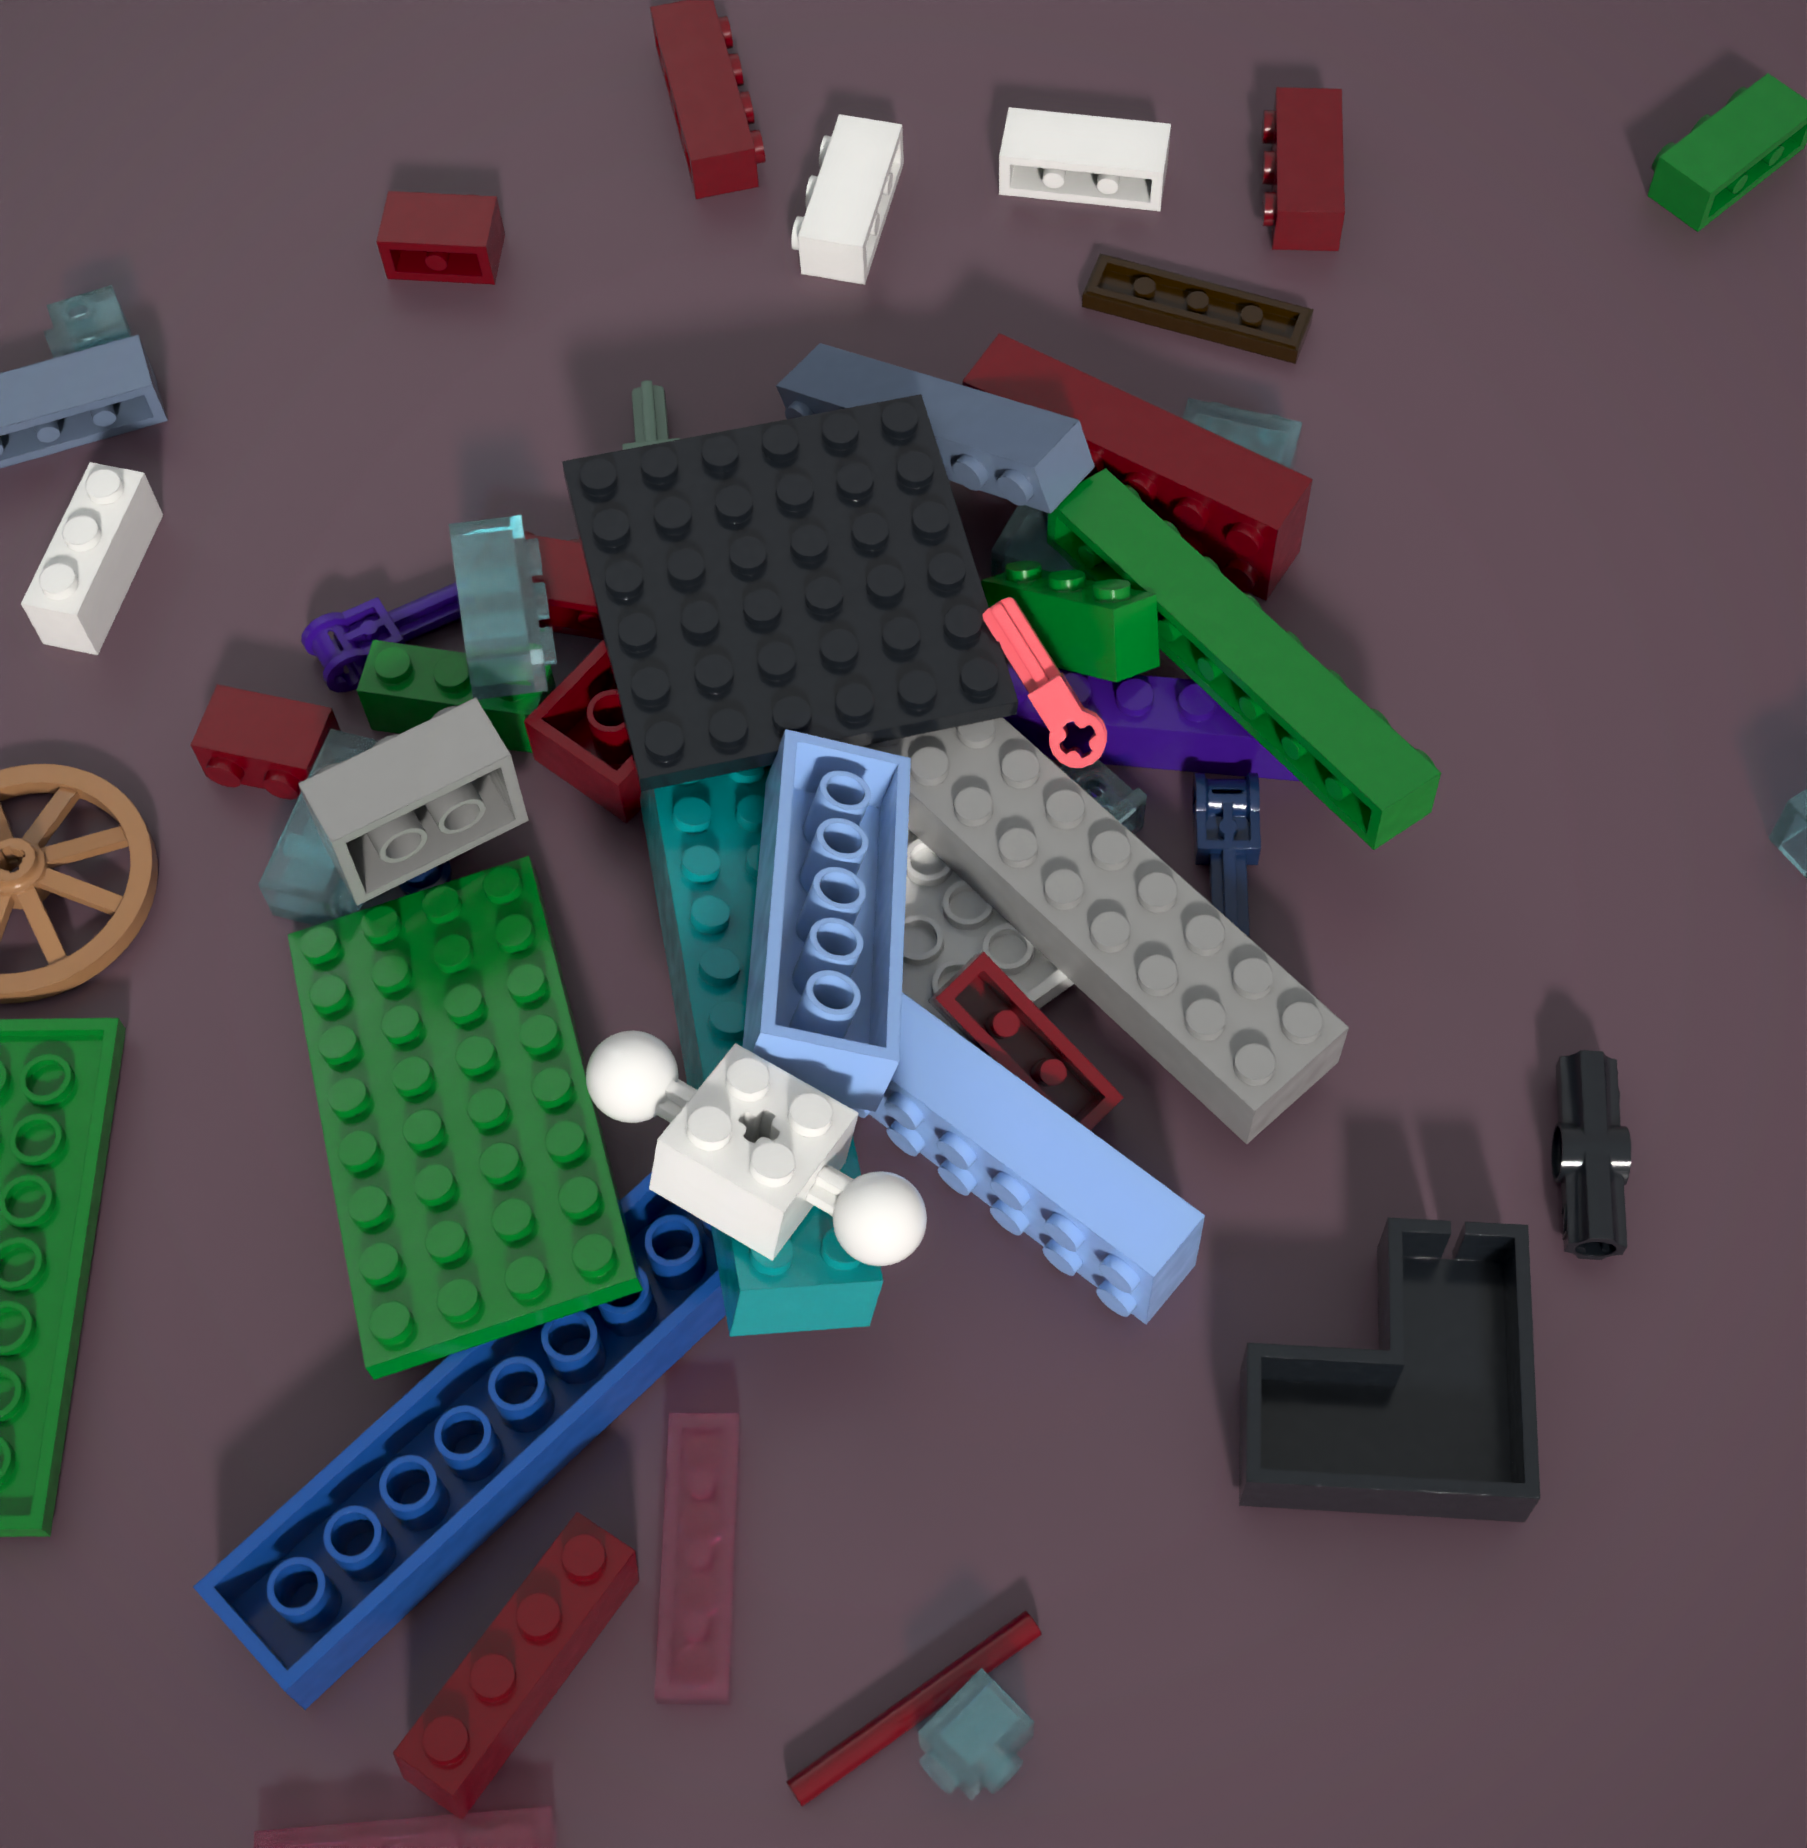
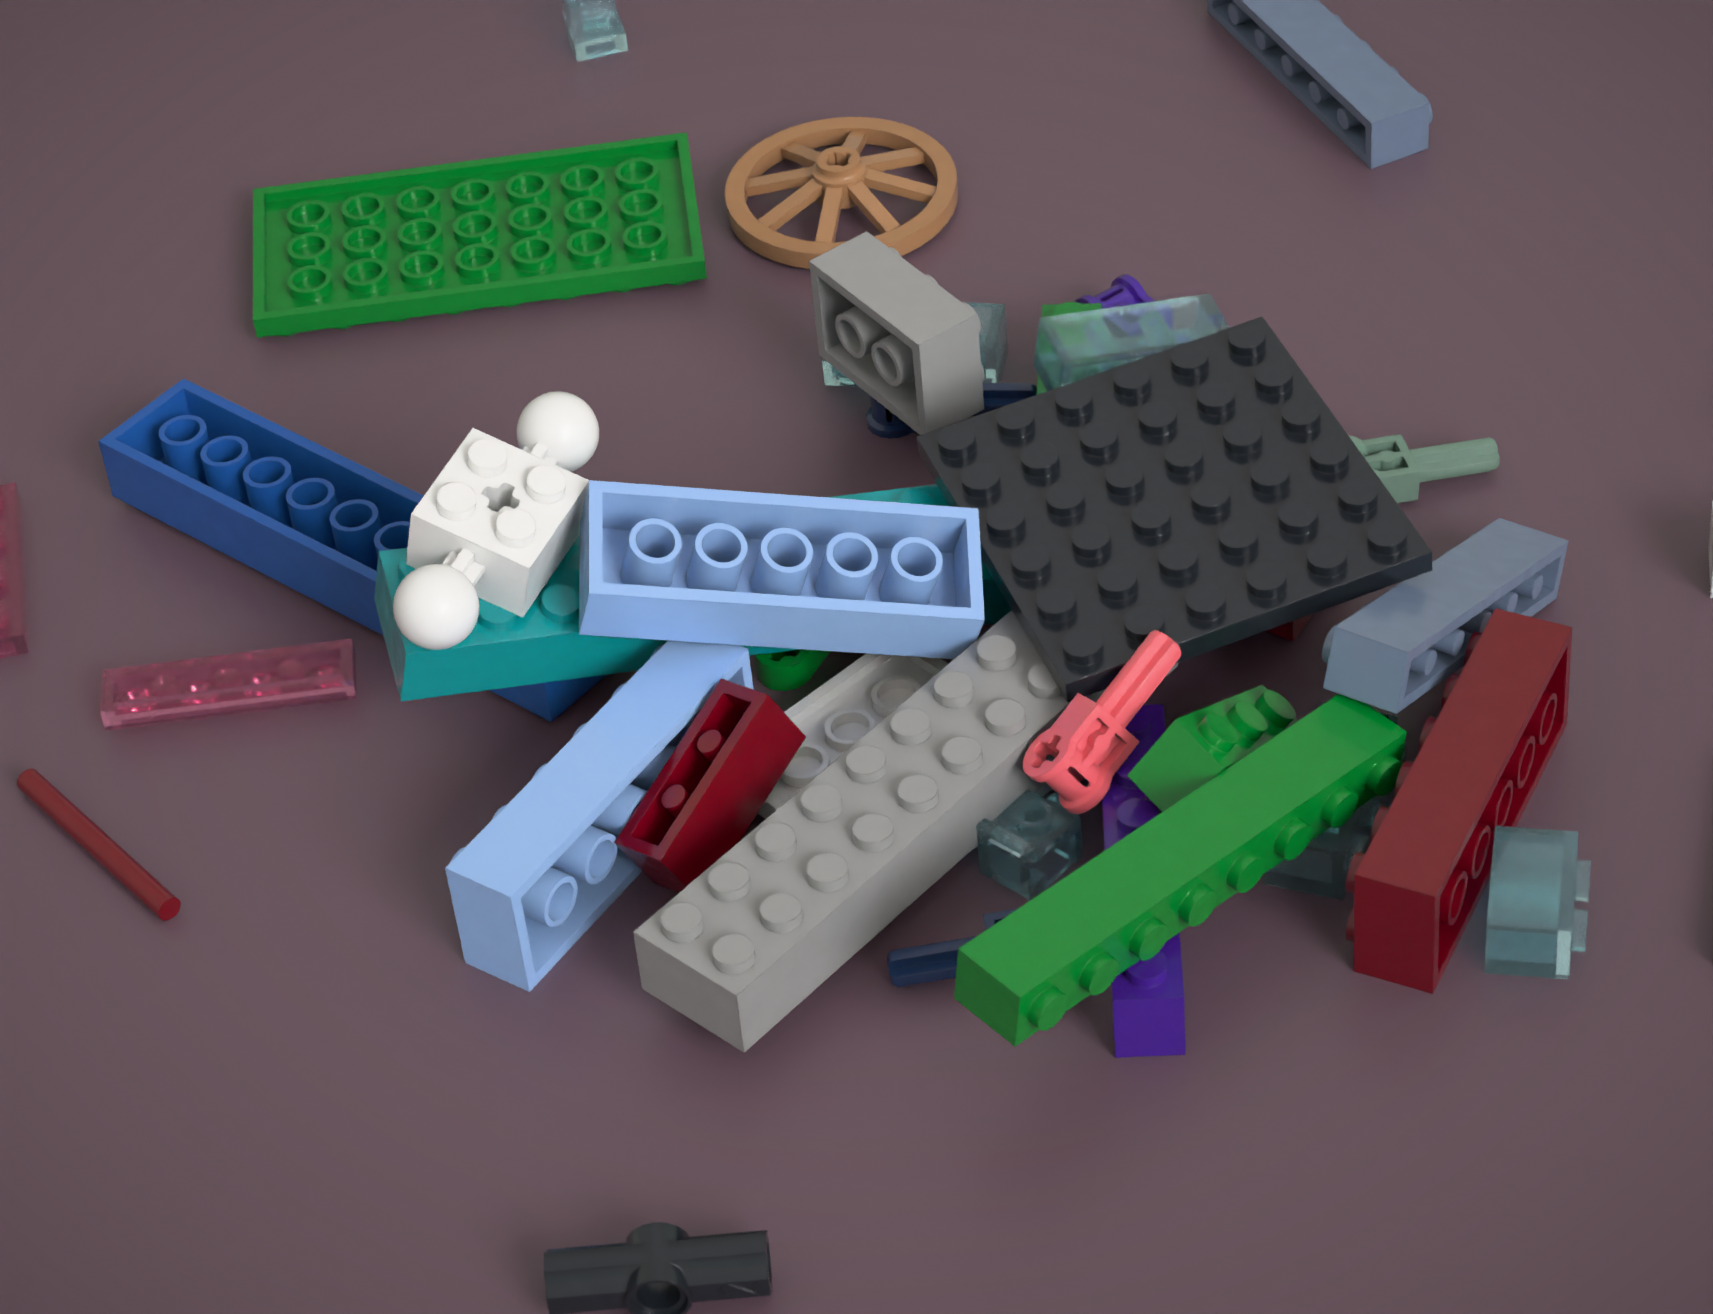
camera: 85 degrees right, 20 degrees down
(86, 322) = (1450, 85): clear light blue brick -> none
(92, 558) = (1177, 144): white brick -> none
(261, 740) = (1006, 271): dark red brick -> none
(441, 237) = (1643, 275): dark red brick -> none
(458, 1119) = (718, 423): green plate -> none
(517, 1666) = (129, 580): dark red brick -> none
(975, 1738) = (62, 871): clear light blue brick -> none
(1428, 1419) = (365, 1147): black piece -> none

